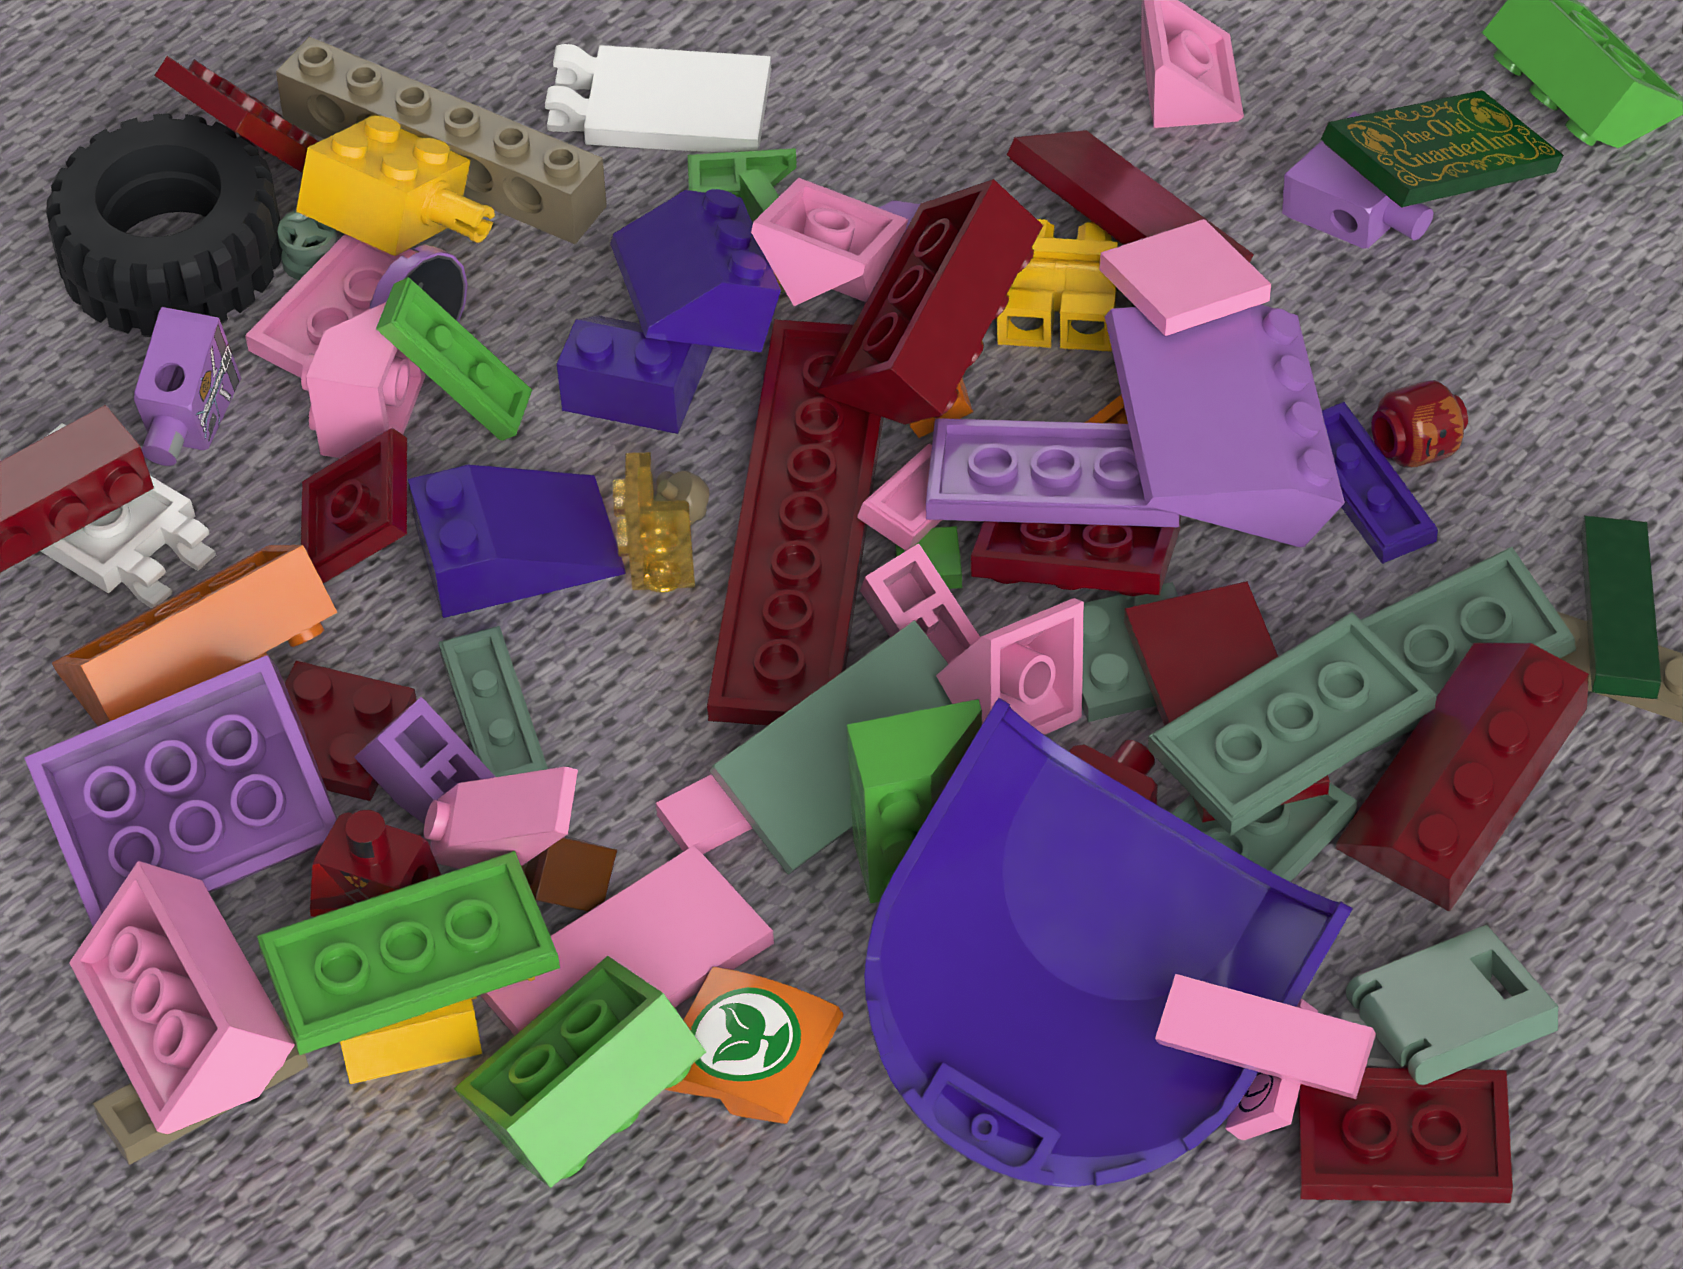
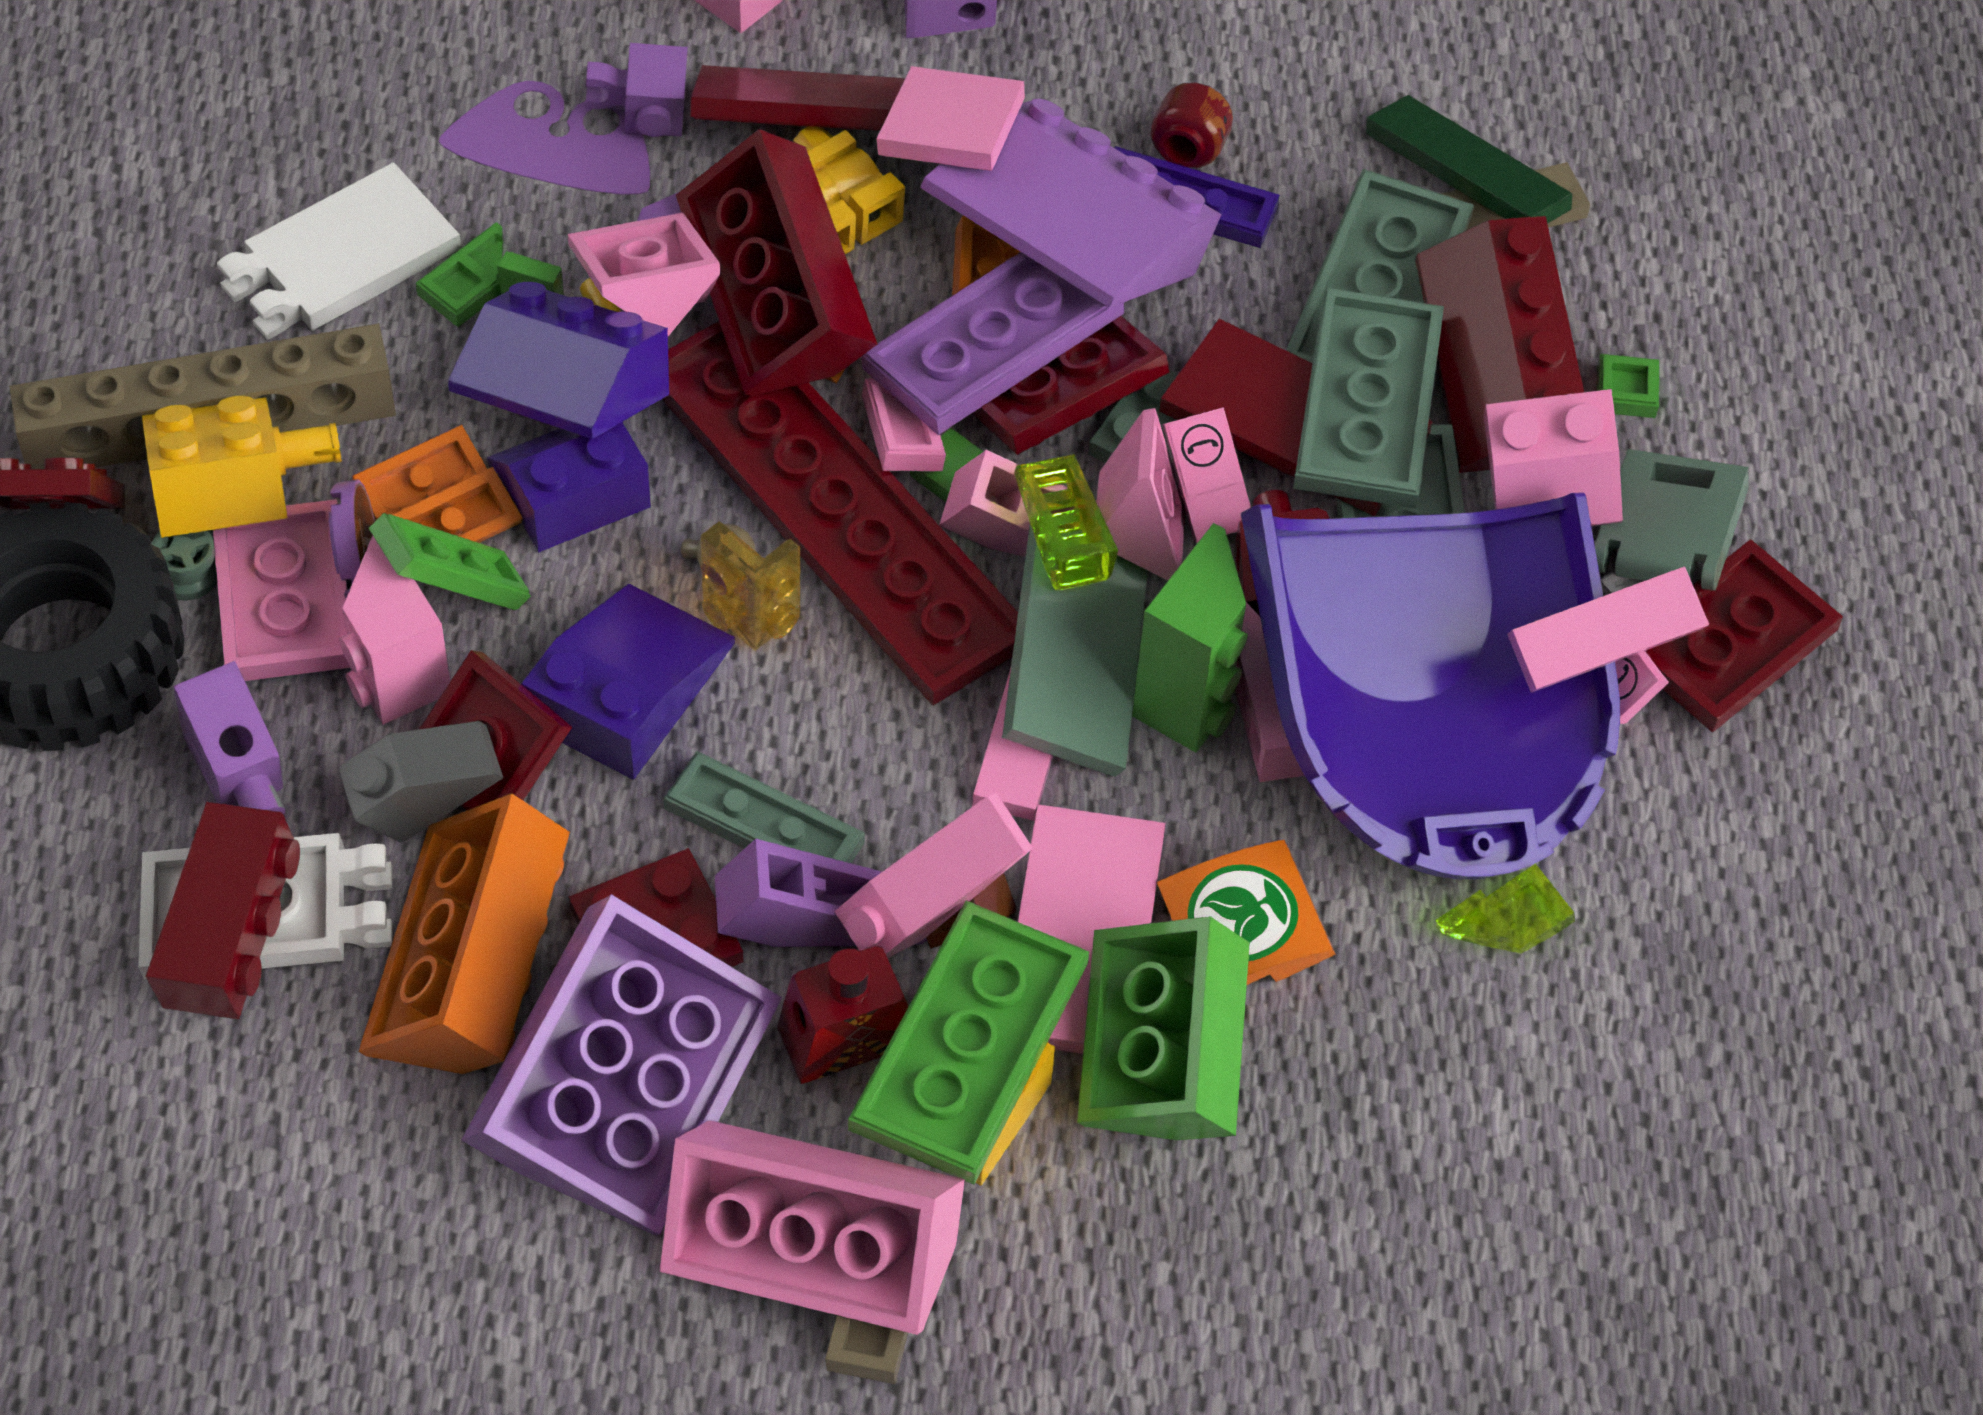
camera: 50 degrees left, 5 degrees up
(273, 496) = (419, 777): none -> dark grey slope
(528, 313) = (442, 488): none -> orange slope
(889, 109) = (524, 146): none -> medium lavender piece
(904, 675) = (1074, 558): none -> clear neon green slope
(963, 1209) = (1512, 916): none -> clear neon green slope
(1016, 110) = (649, 89): none -> medium lavender brick
(1103, 691) = (1207, 471): none -> bright pink tile
(1382, 867) = (1556, 449): none -> bright pink slope
(1564, 882) = (1632, 383): none -> bright green tile

